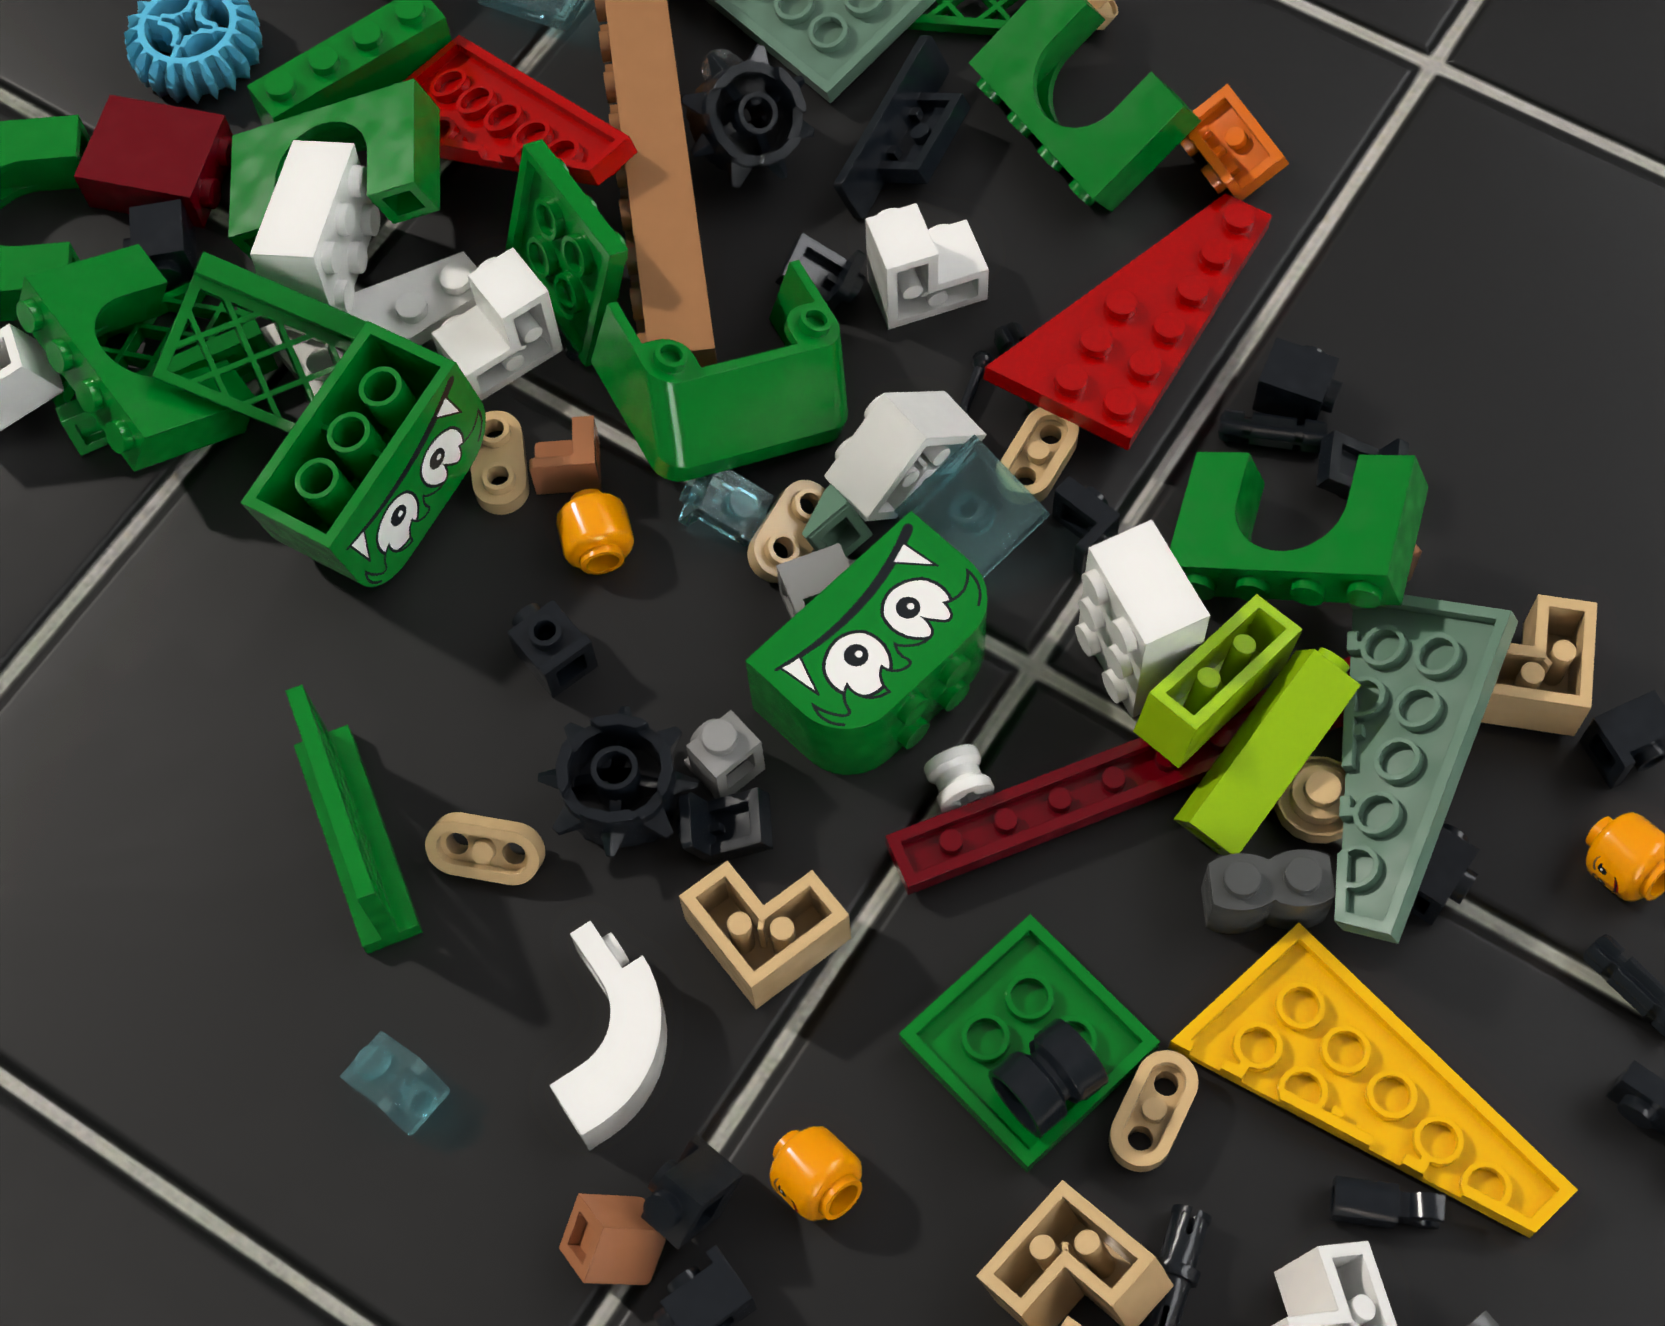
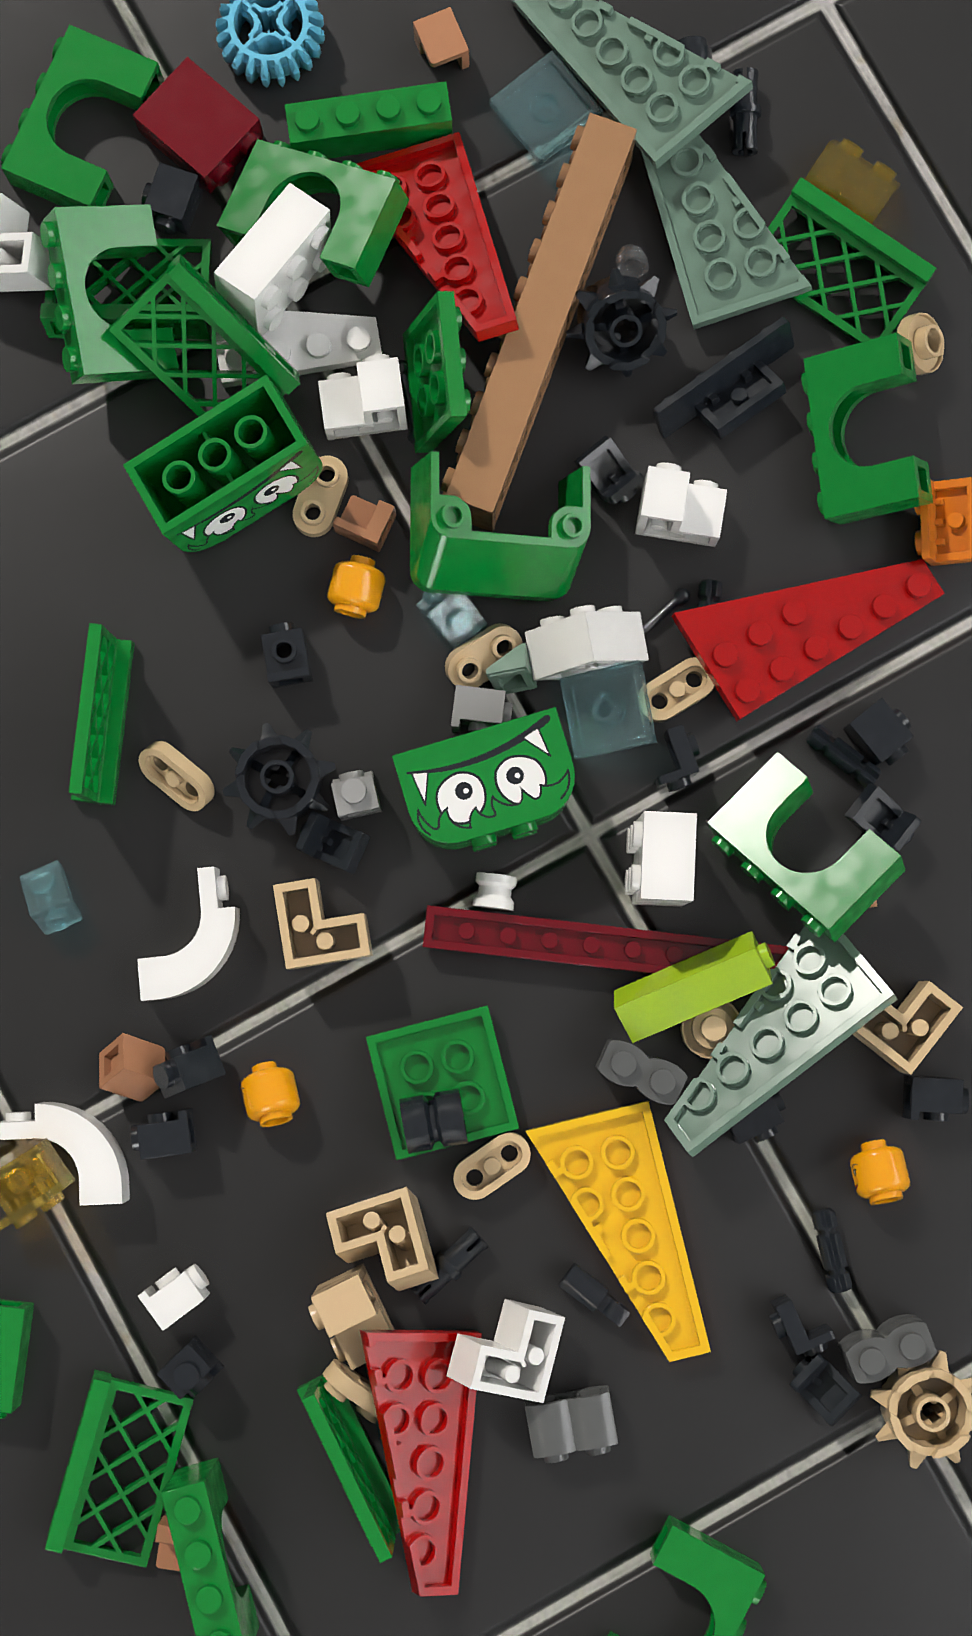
camera: 25 degrees right, 20 degrees up
(1217, 680) = (688, 926): lime brick -> none

